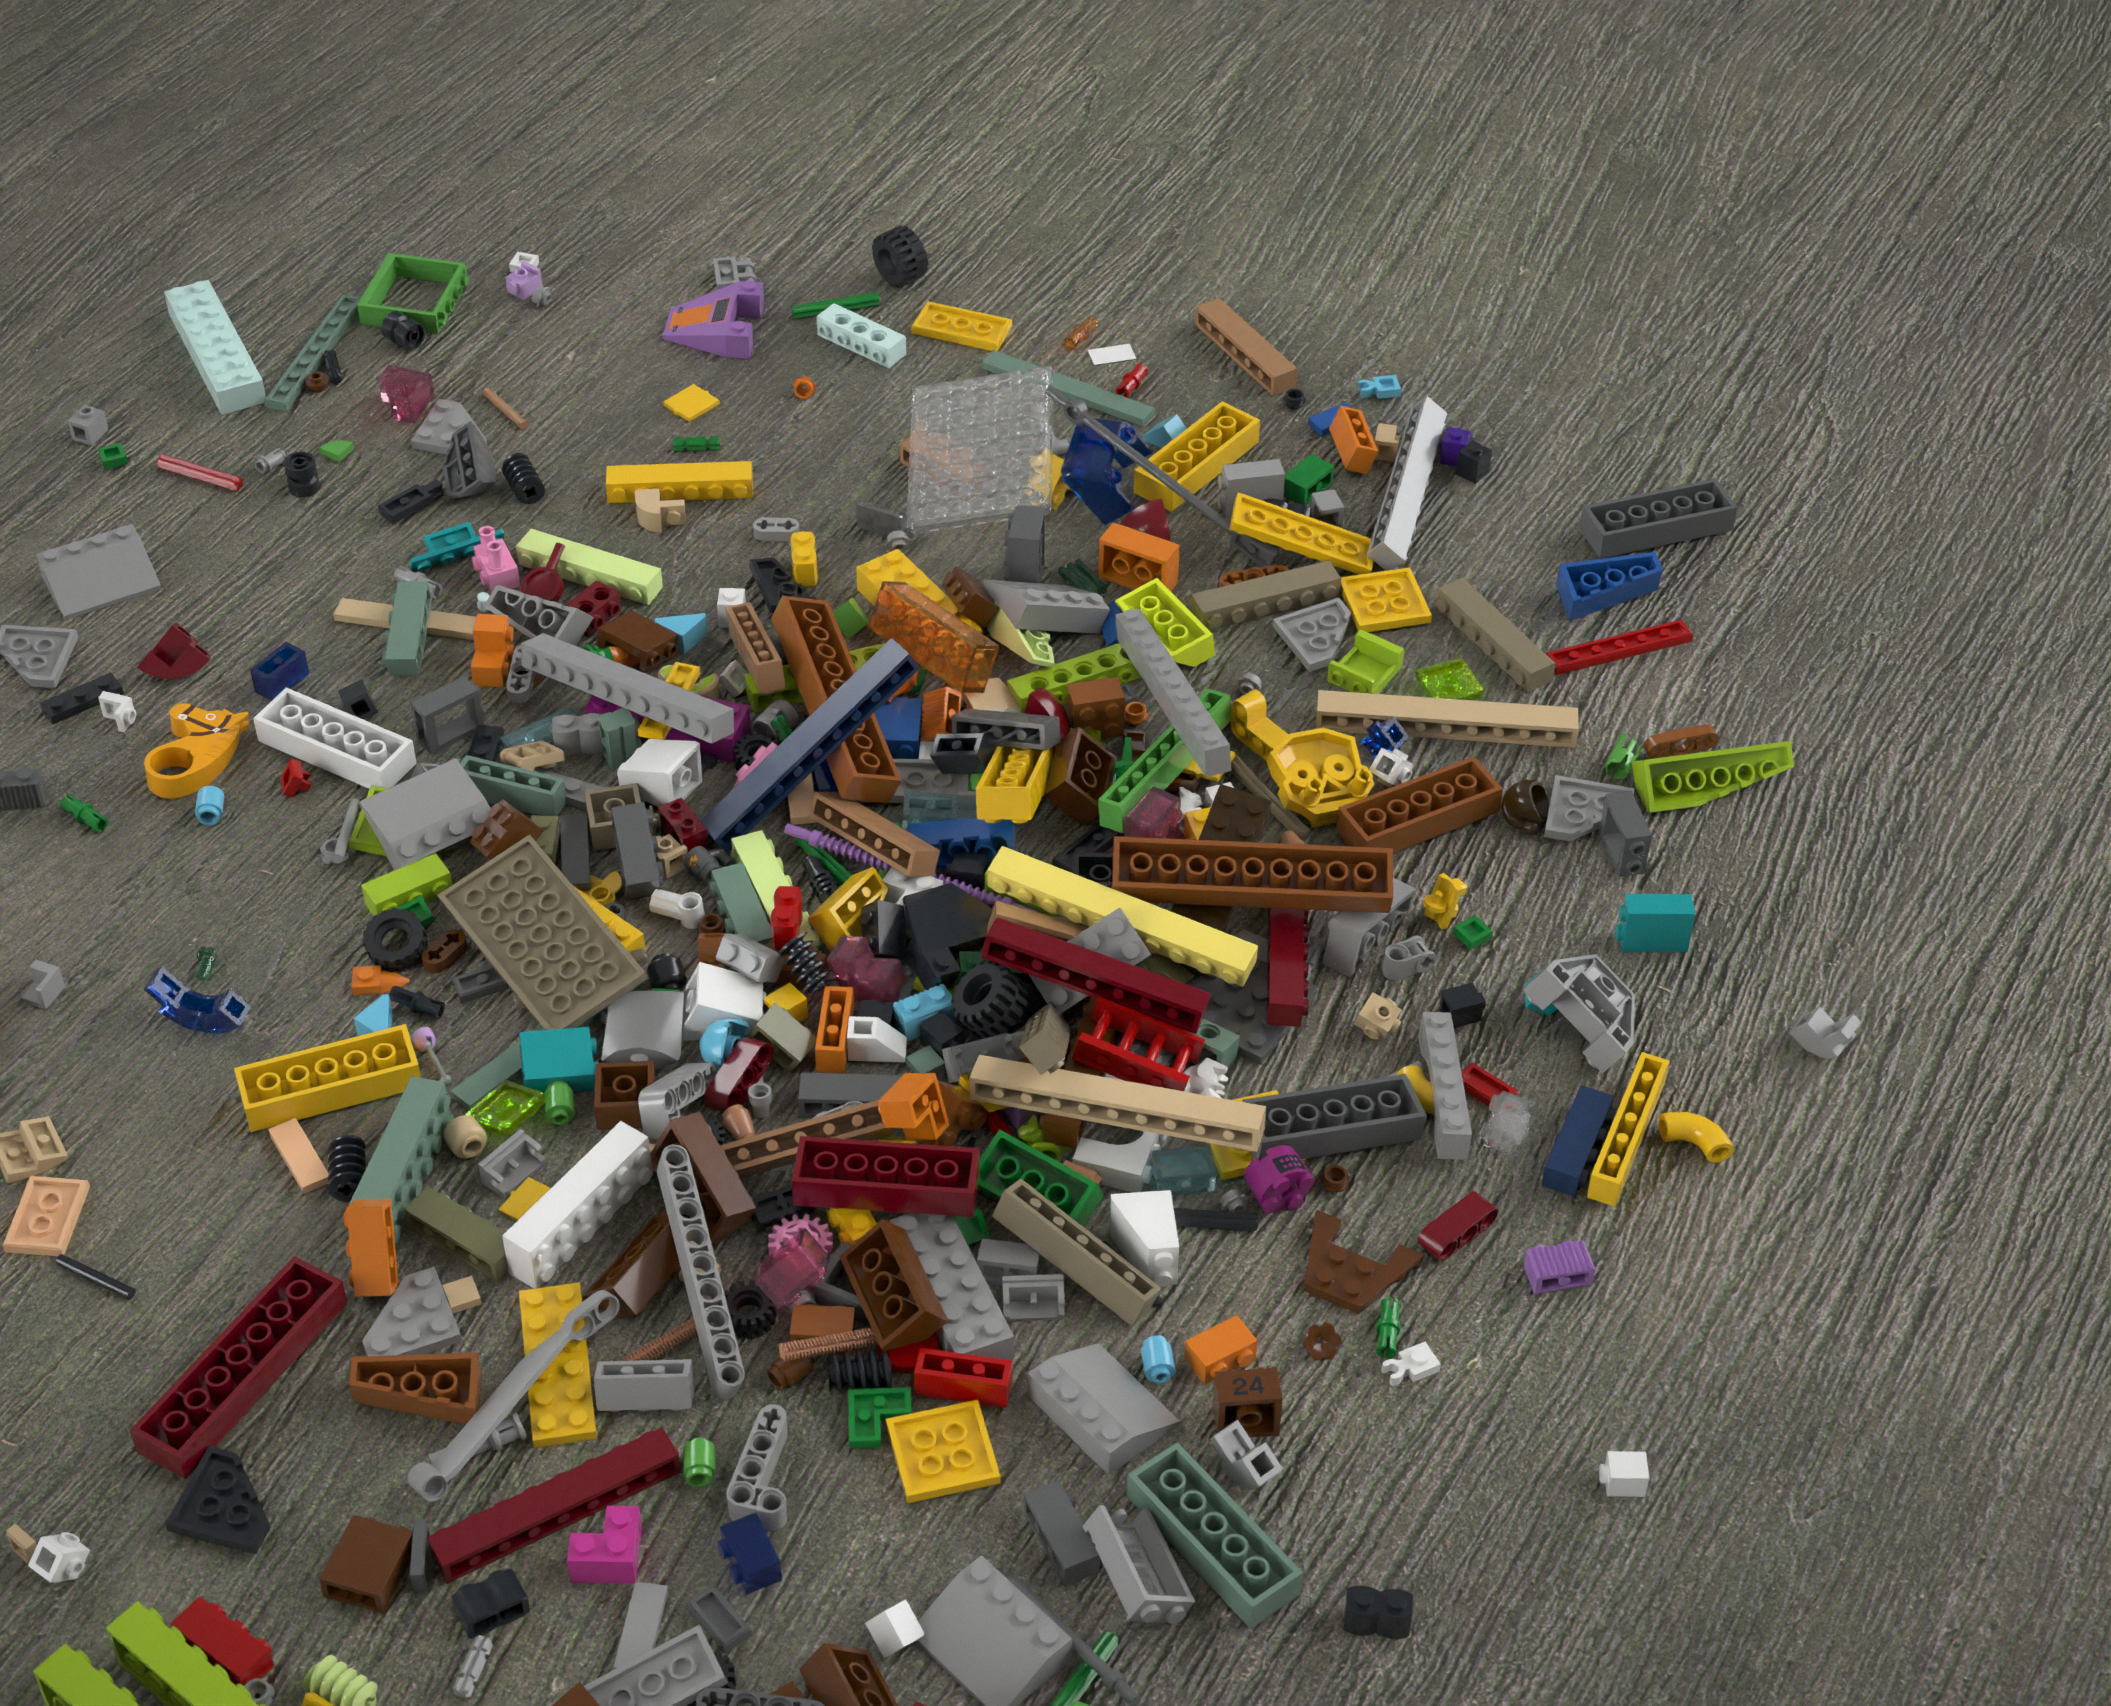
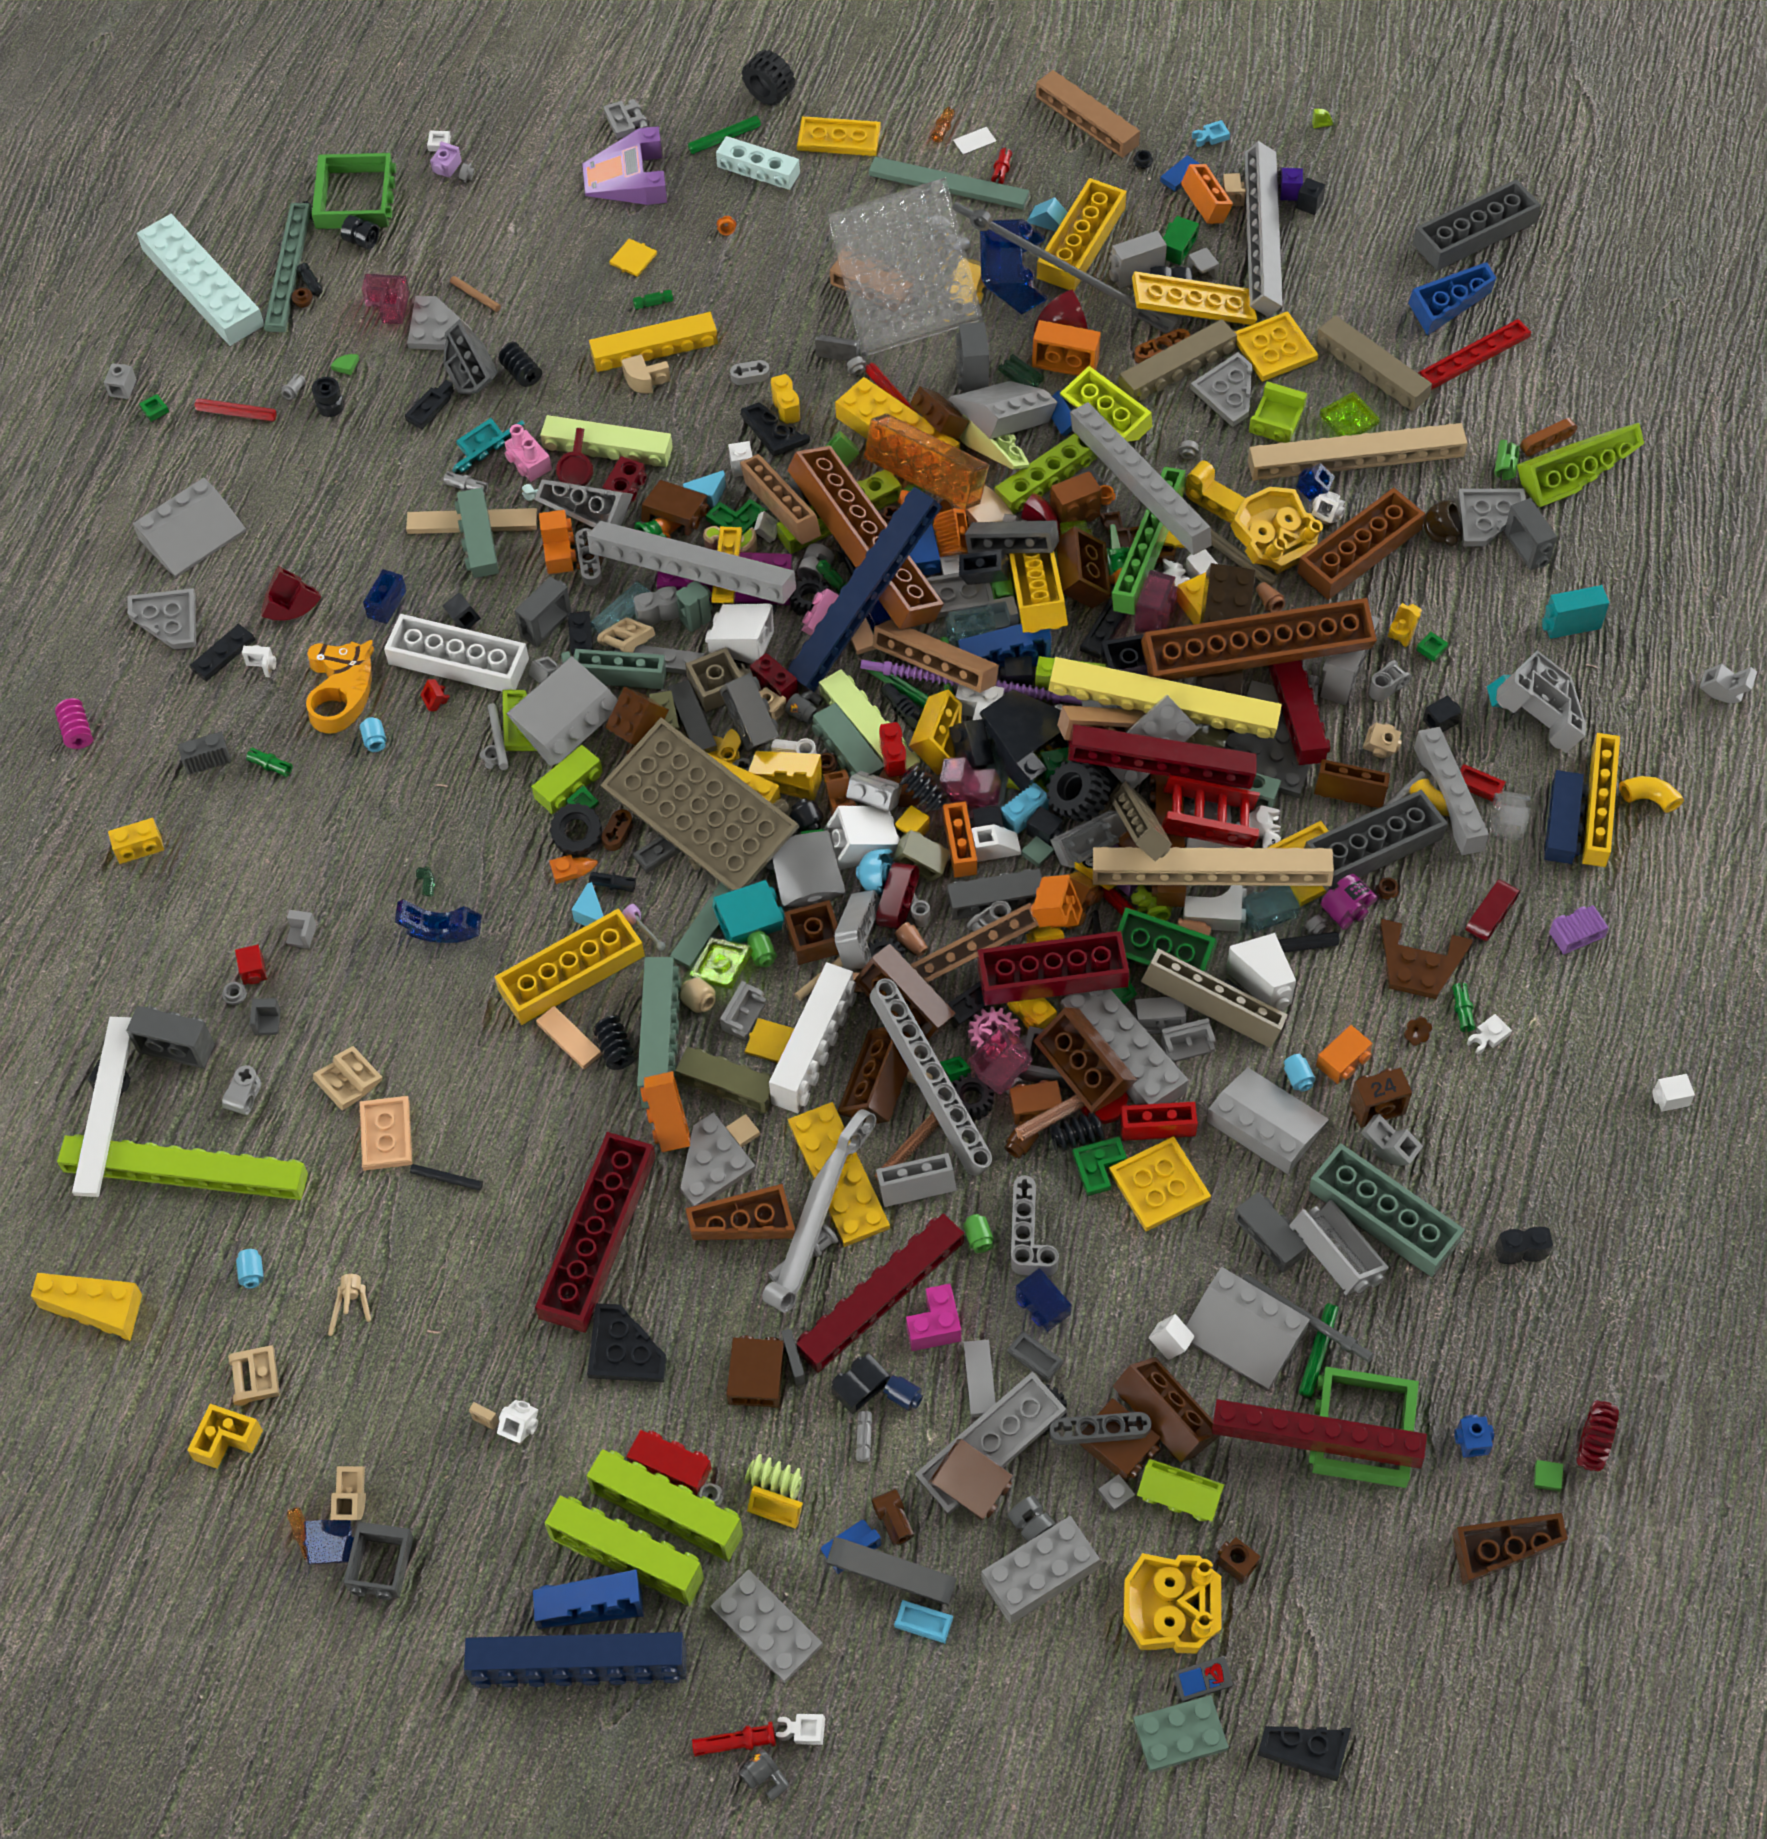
camera: 10 degrees left, 15 degrees up
(538, 1624) = (903, 1392): none -> dark blue brick
(666, 924) = (795, 772): none -> yellow wedge
(713, 664) = (744, 517): none -> green plate
(735, 1272) = (955, 1068): none -> green plate
(922, 562) = (885, 384): none -> red axle
(1324, 1055) = (1352, 783): none -> reddish brown brick
(1511, 391) = (1321, 118): none -> lime tile

